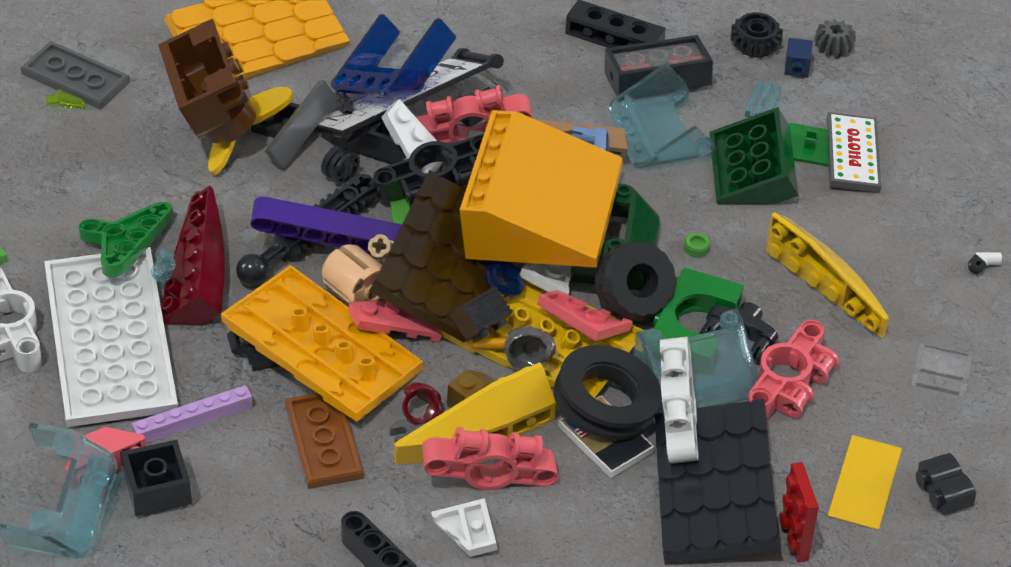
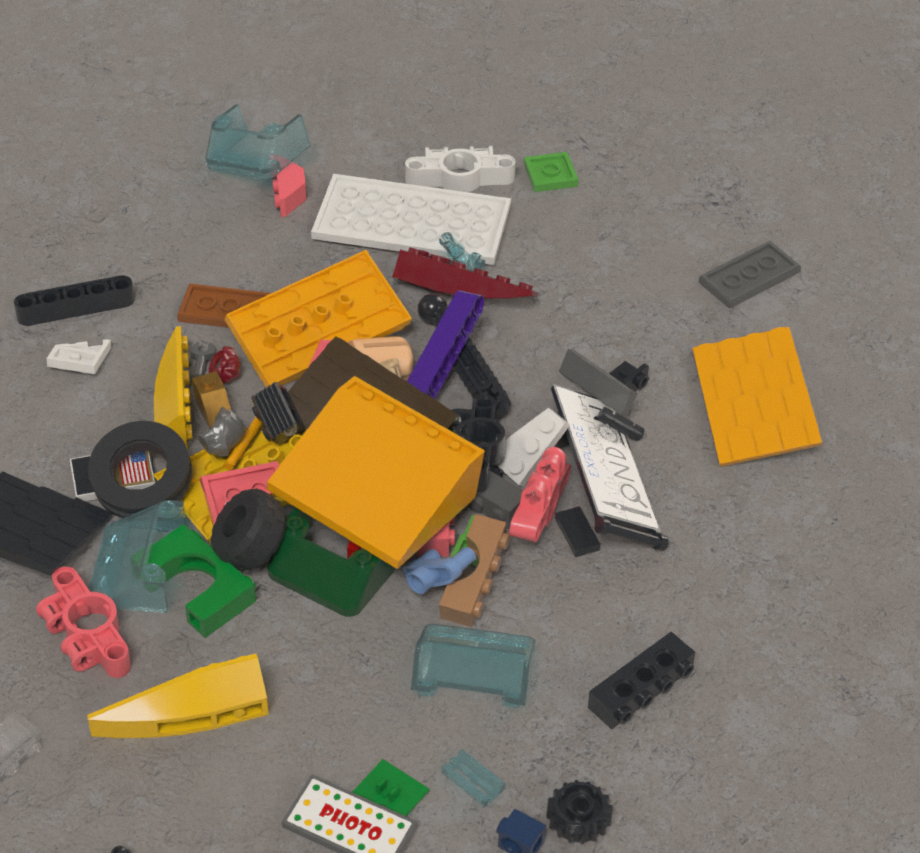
camera: 115 degrees right, 0 degrees up
(65, 99) = (716, 258): clear neon green bar -> none
(126, 238) = (504, 236): green beam -> none
(156, 477) = (241, 200): black brick -> none
(194, 414) = (300, 242): lavender piece -> none
(214, 92) = (635, 302): reddish brown brick -> none
(340, 164) = (533, 396): black wheel -> none
(364, 77) = (634, 442): clear blue windscreen -> none
(522, 459) = (122, 375): coral piece -> none
(633, 62) = (559, 689): black brick -> none
(678, 400) = (64, 498): white piece -> none
(697, 245) = (295, 630): bright green tile -> none
(754, 160) = (377, 721): dark green slope -> none
(756, 329) = (165, 617): black connector -> none

